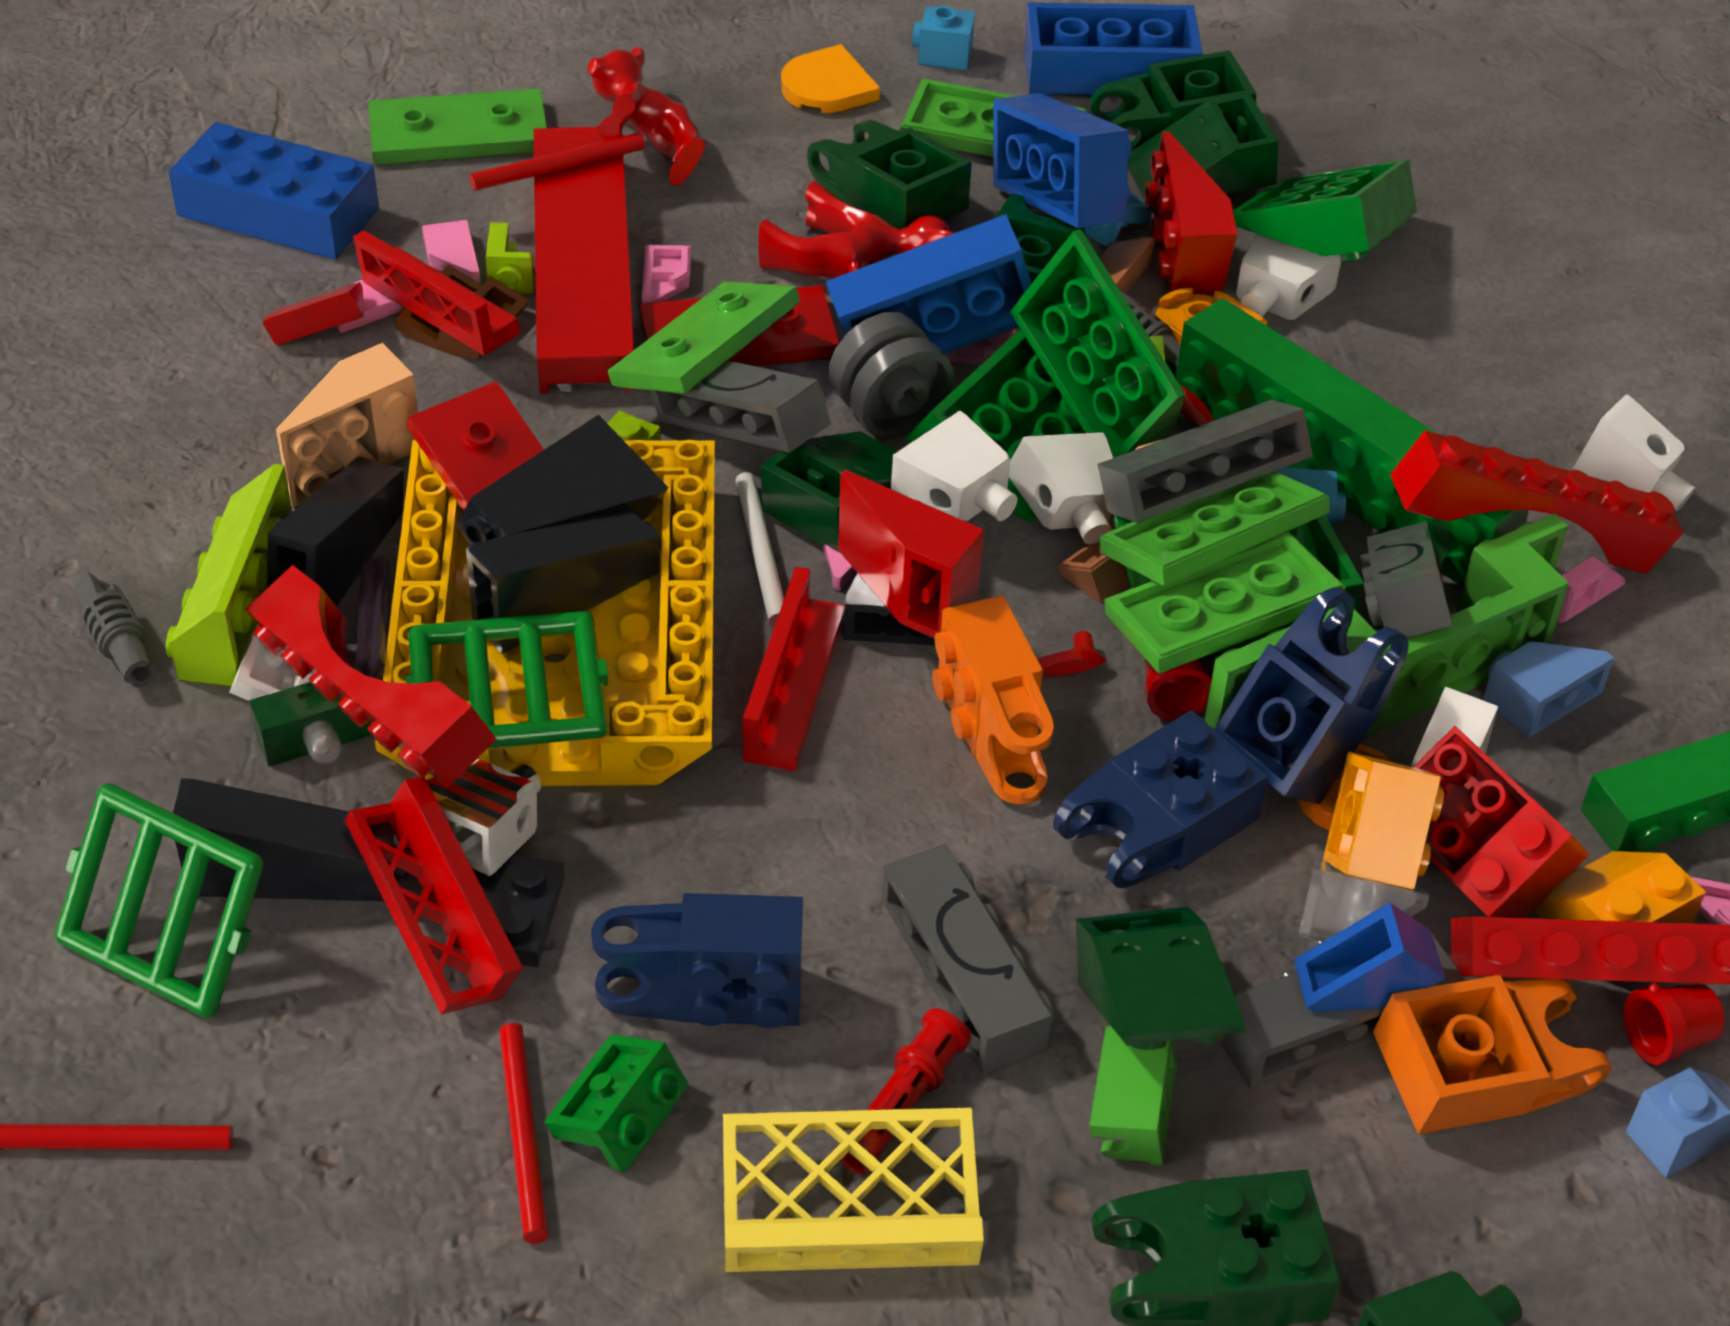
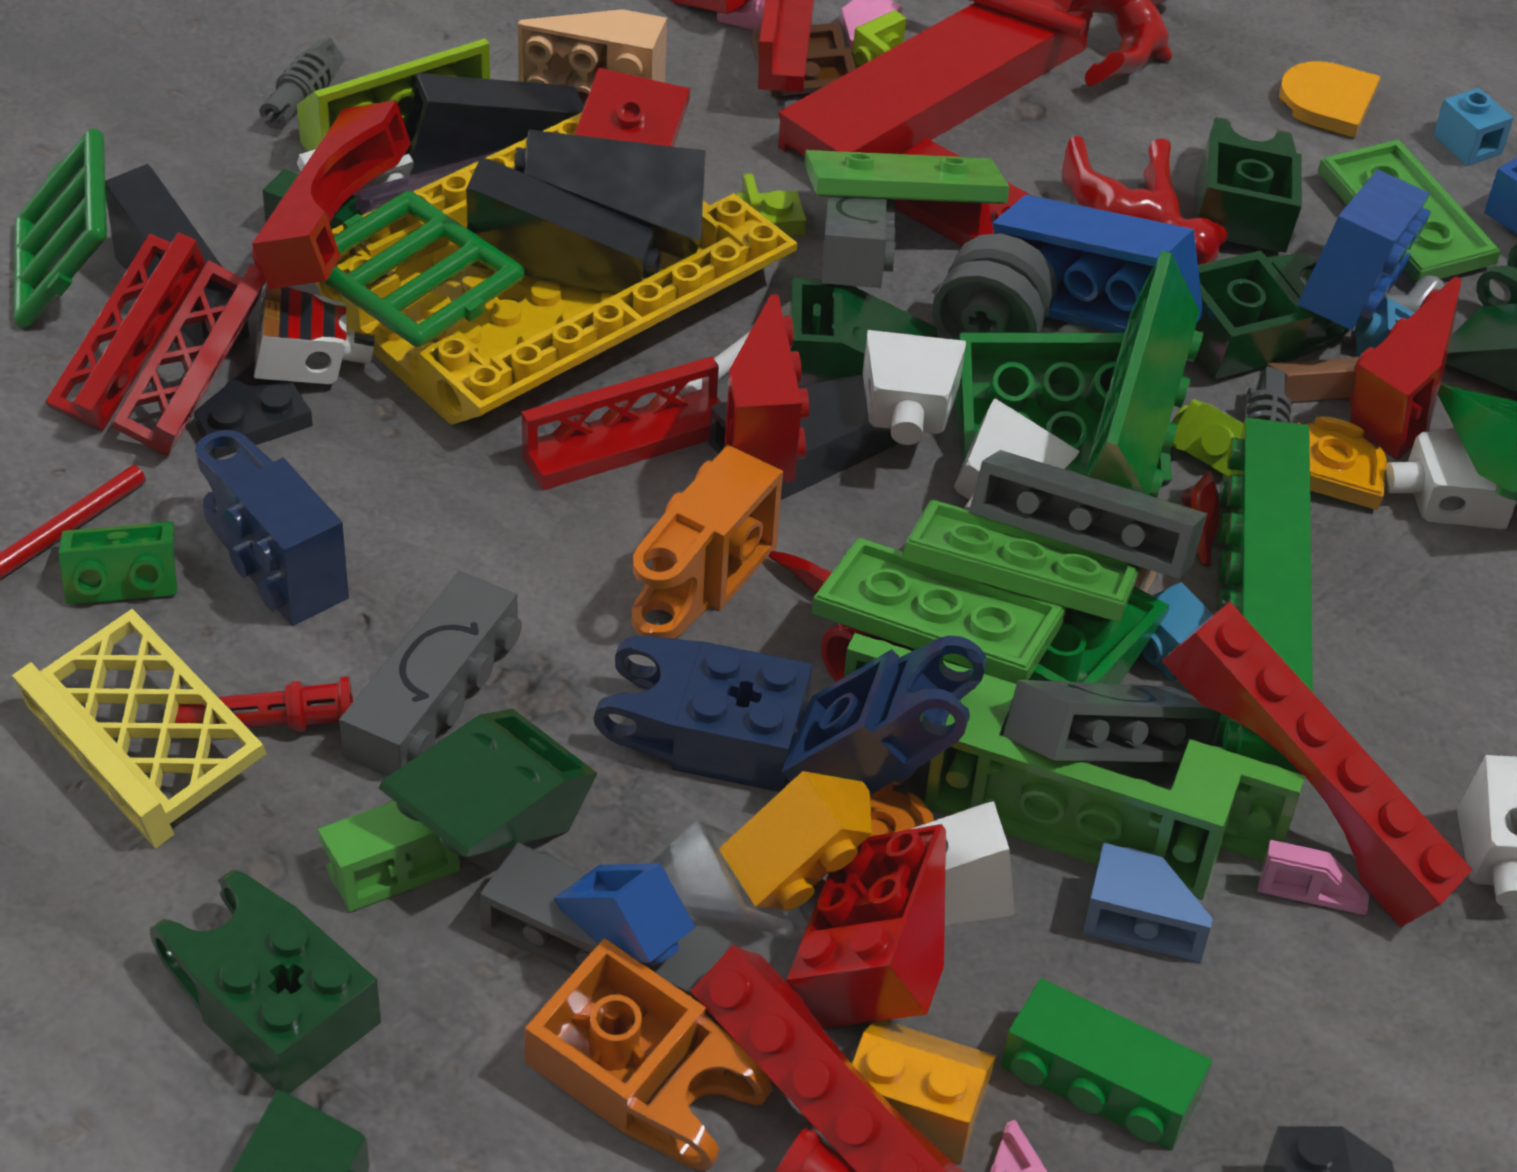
camera: 50 degrees right, 0 degrees up
(373, 919) = (131, 338): none -> red fence
(665, 272) = (984, 134): bright pink tile -> none

